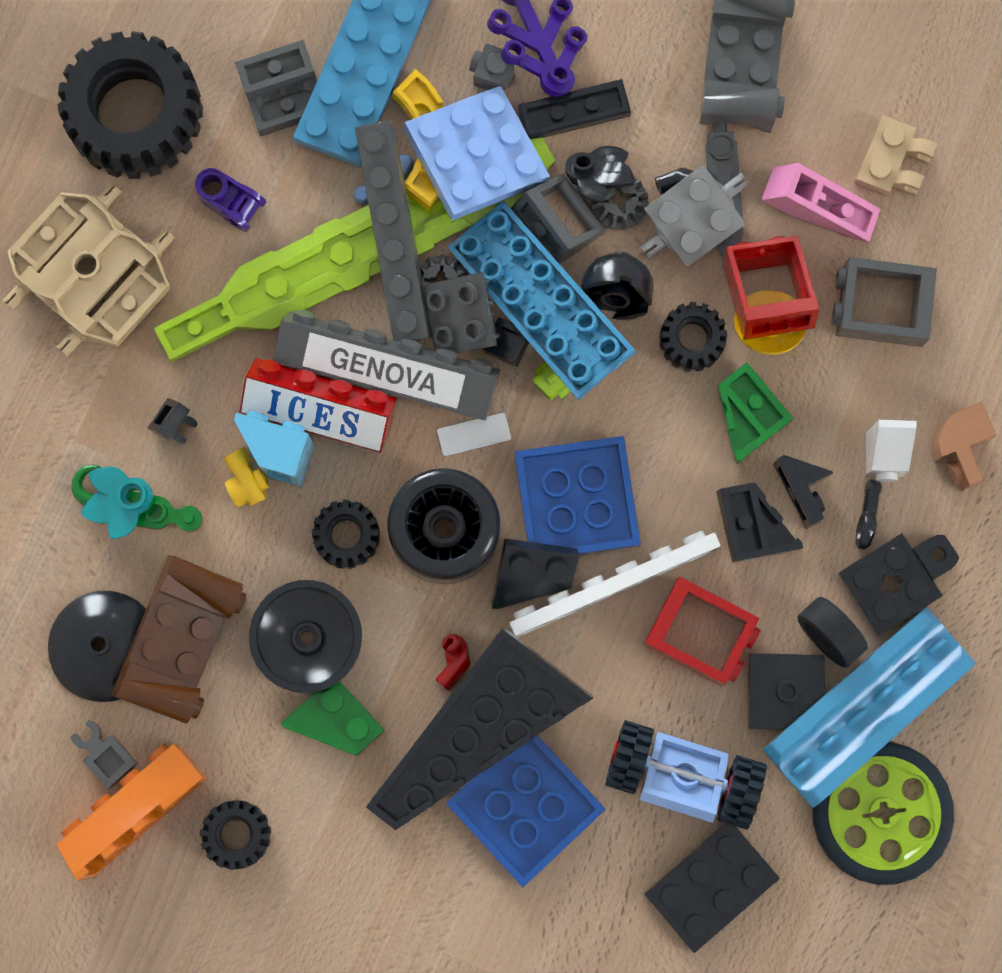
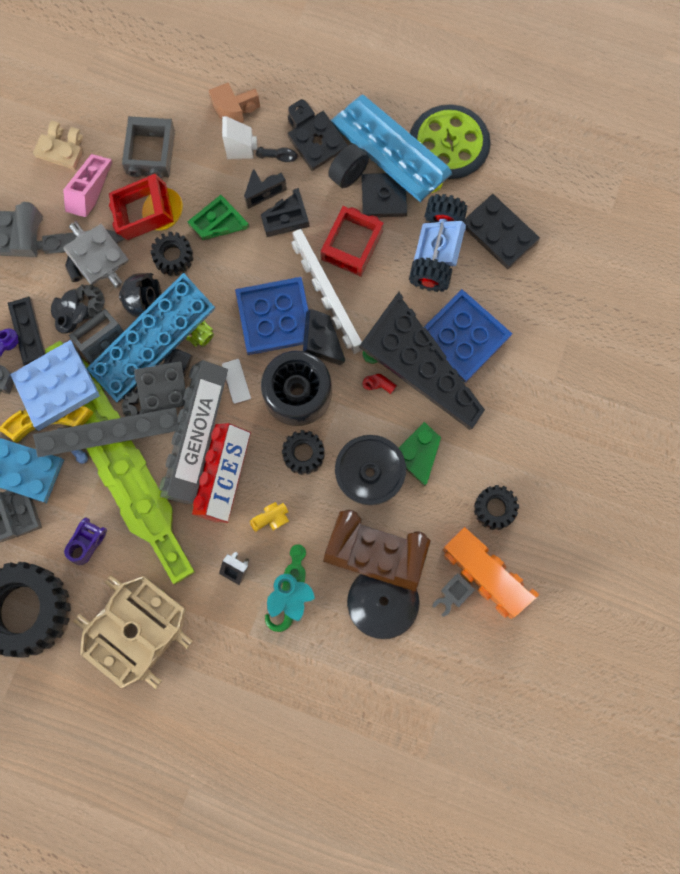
camera: 90 degrees left, 5 degrees down
(279, 450) = (251, 497): medium azure slope -> none

